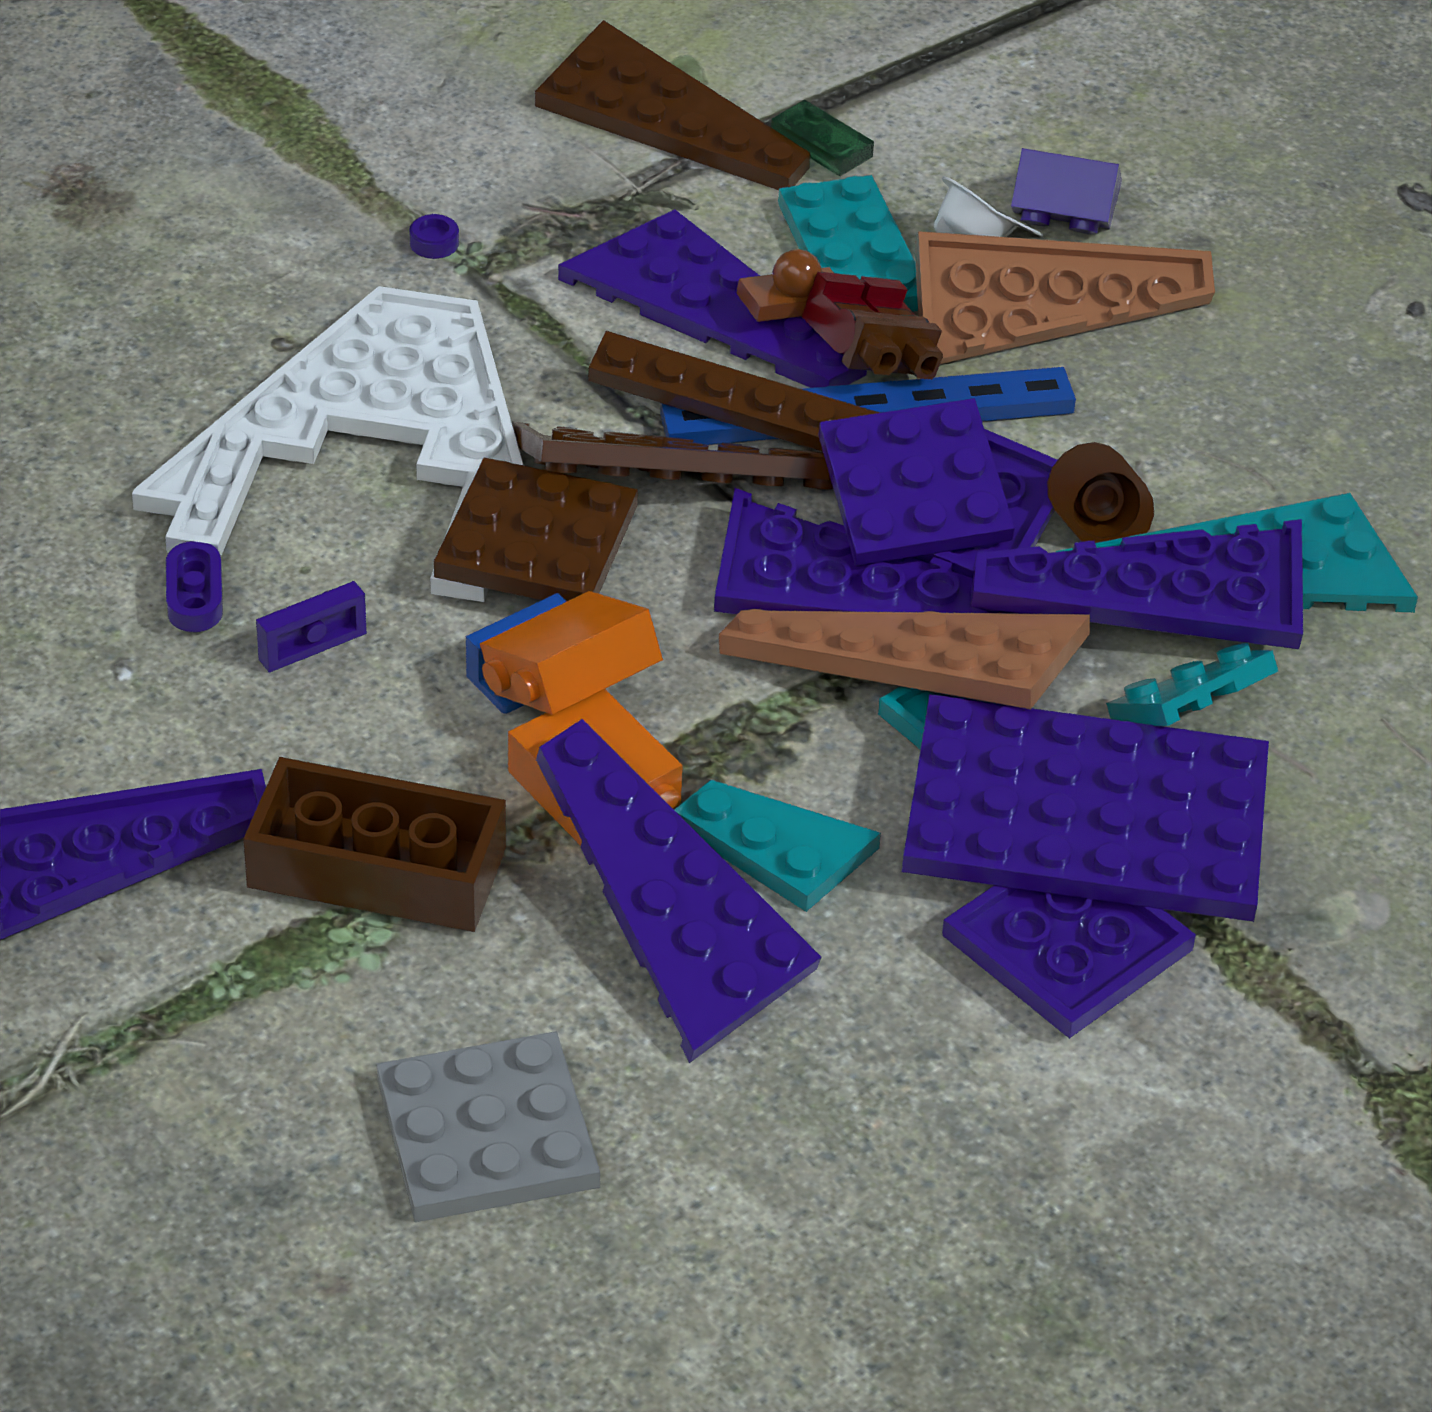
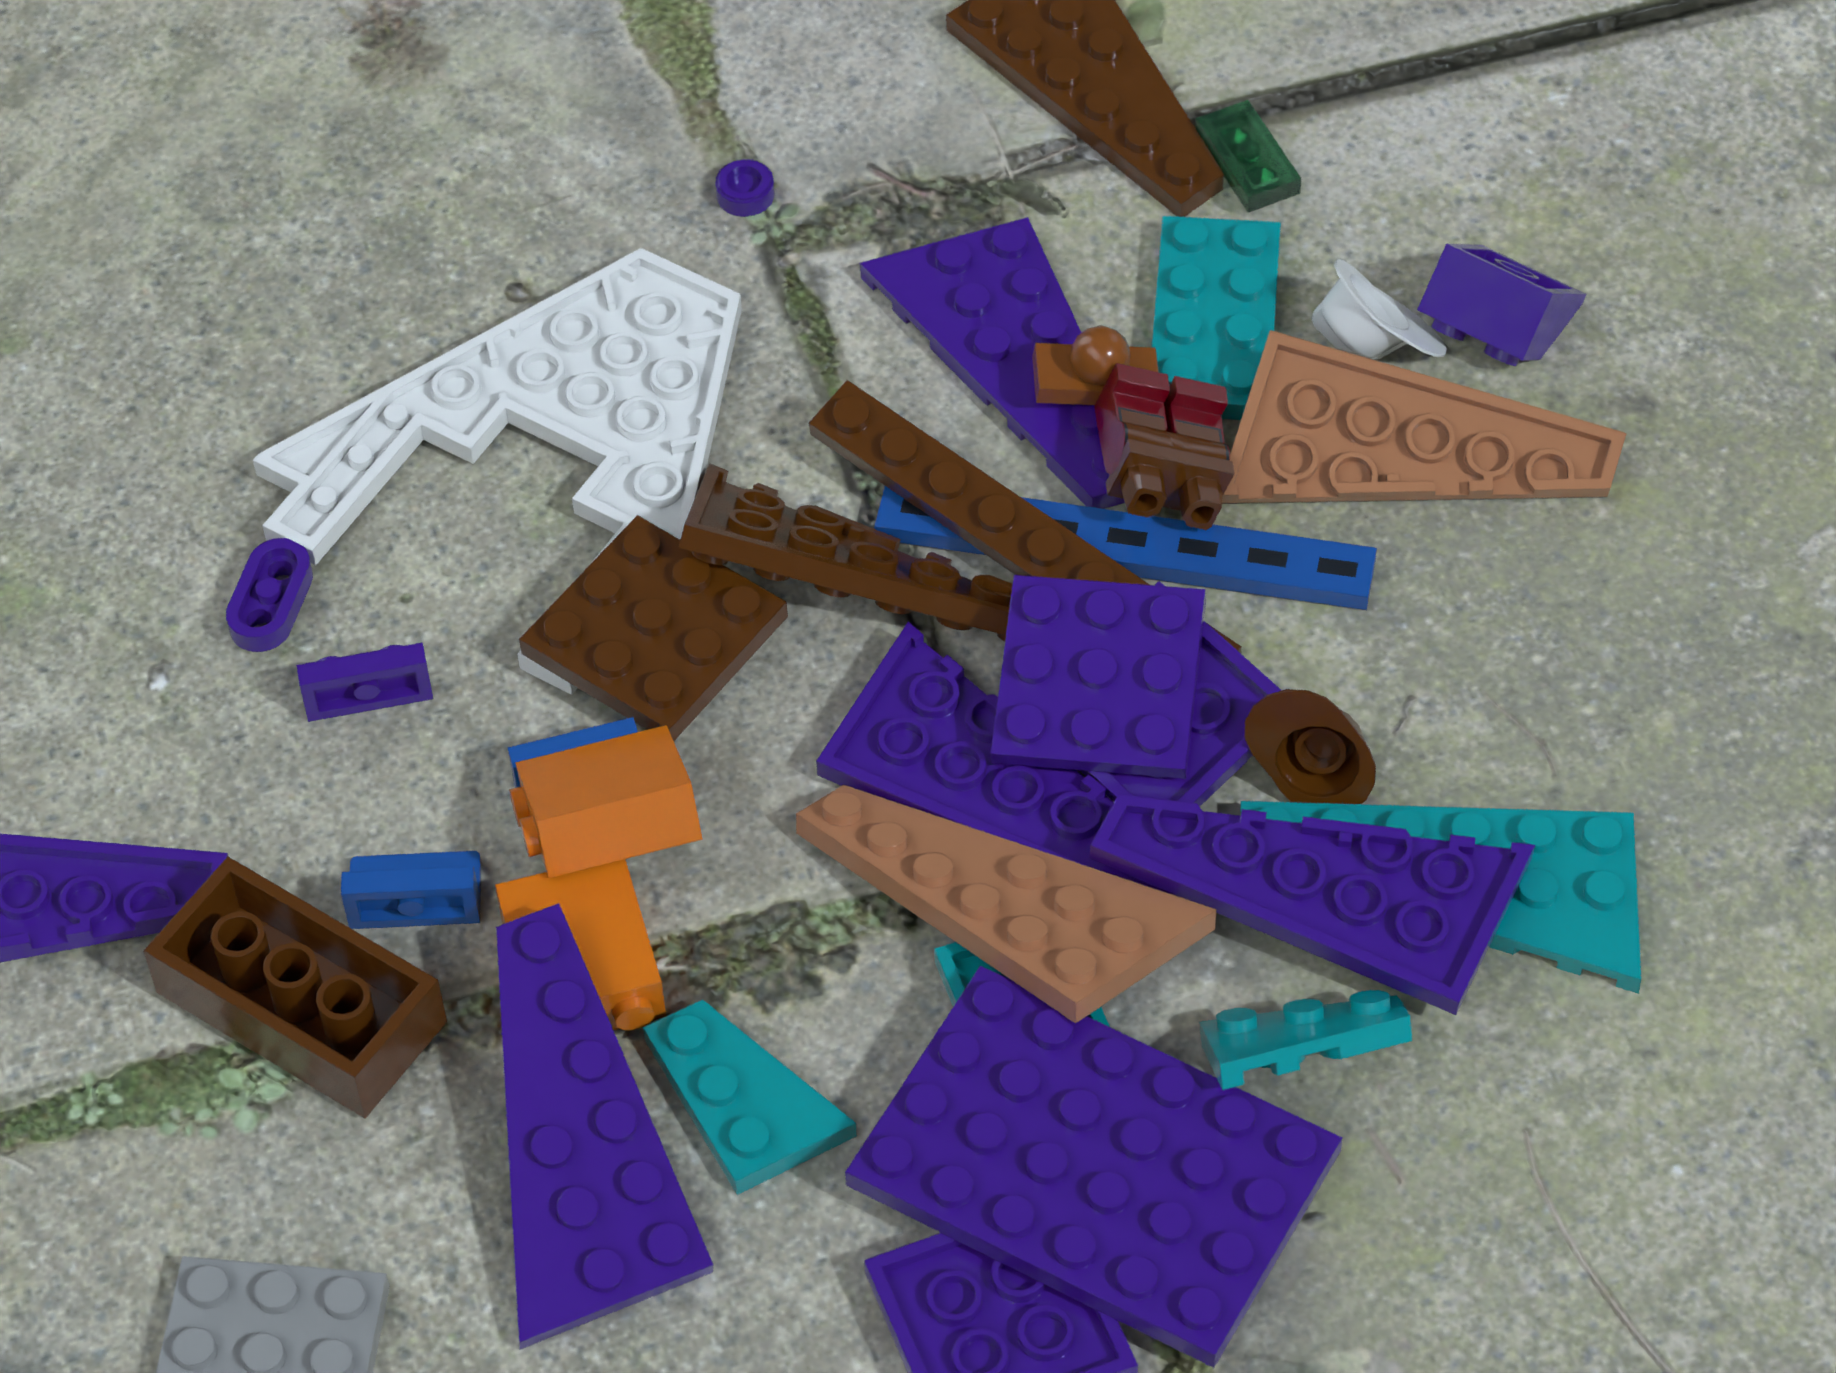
camera: 25 degrees right, 10 degrees up
(437, 760) = (412, 890): none -> blue panel

